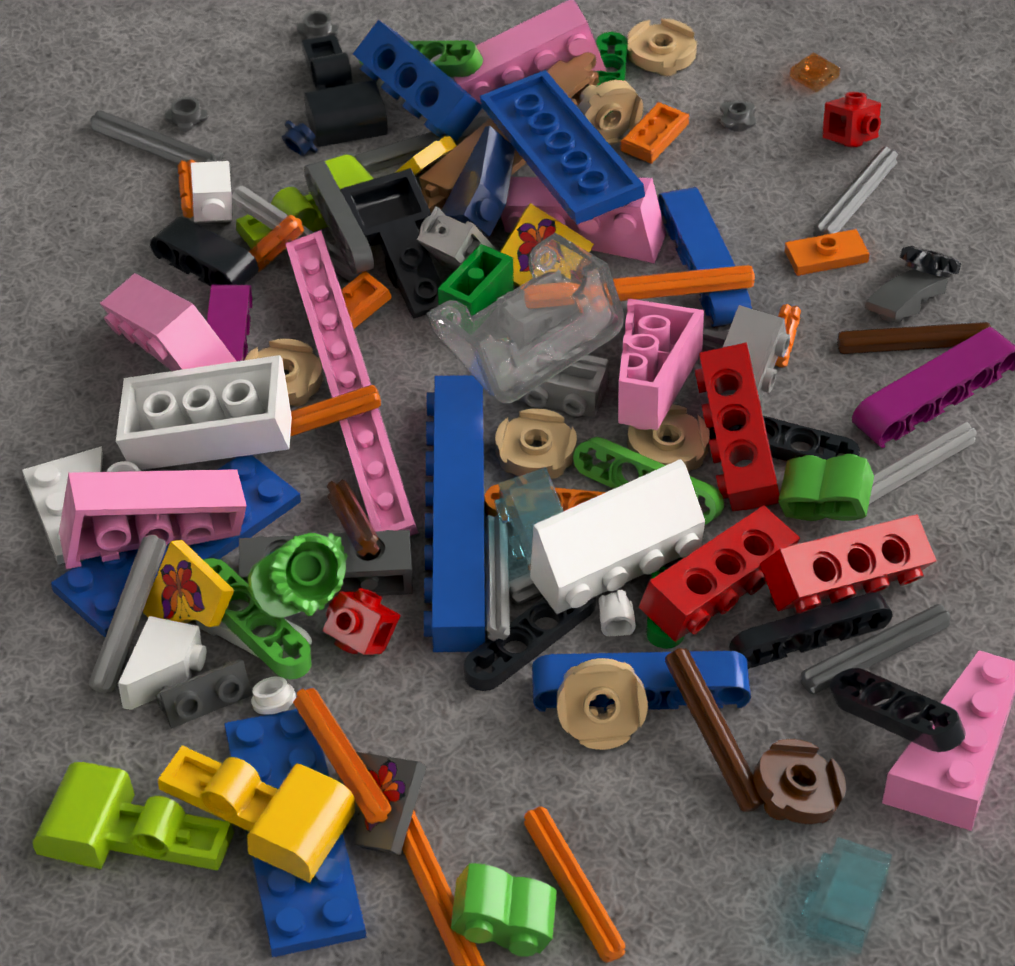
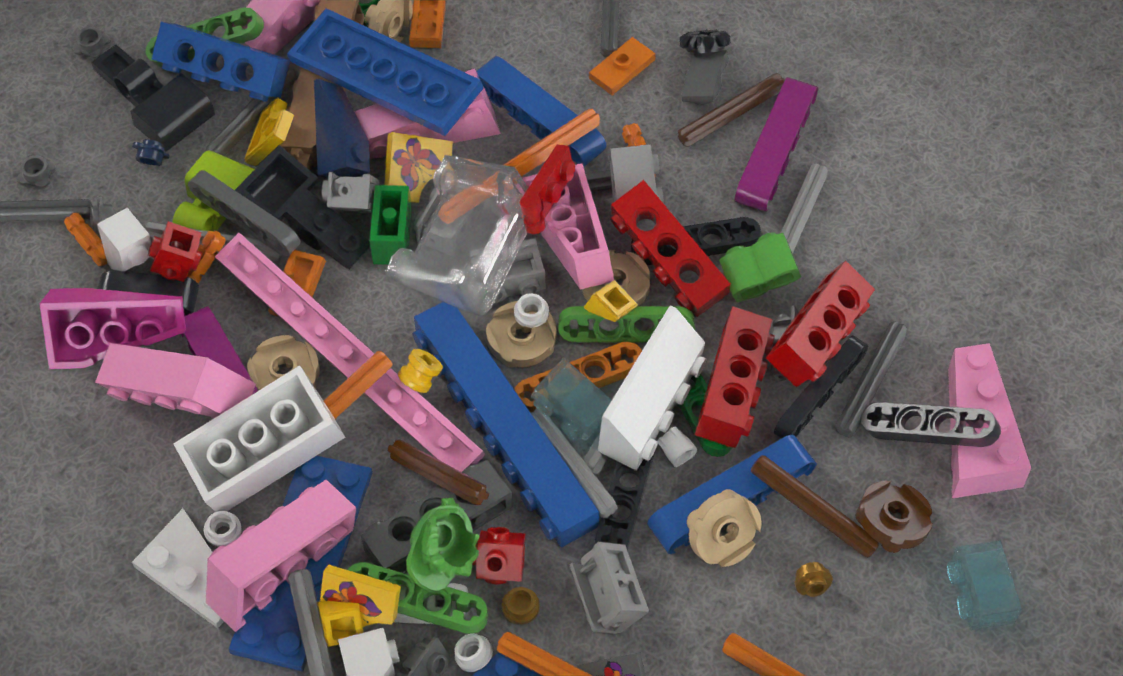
camera: 30 degrees left, 10 degrees up
(129, 244) = (86, 320): none -> dark pink wedge
(162, 600) = (339, 620): none -> yellow slope
(247, 219) = (175, 251): none -> red brick
(351, 679) = (520, 605): none -> pearl gold plate
(404, 424) = (420, 370): none -> yellow wheel
(444, 702) = (609, 588): none -> light grey hinge
(555, 421) = (531, 302): none -> white plate
(639, 446) = (611, 302): none -> yellow slope
(641, 309) = (547, 188): none -> red plate
(665, 799) = (812, 579): none -> pearl gold plate

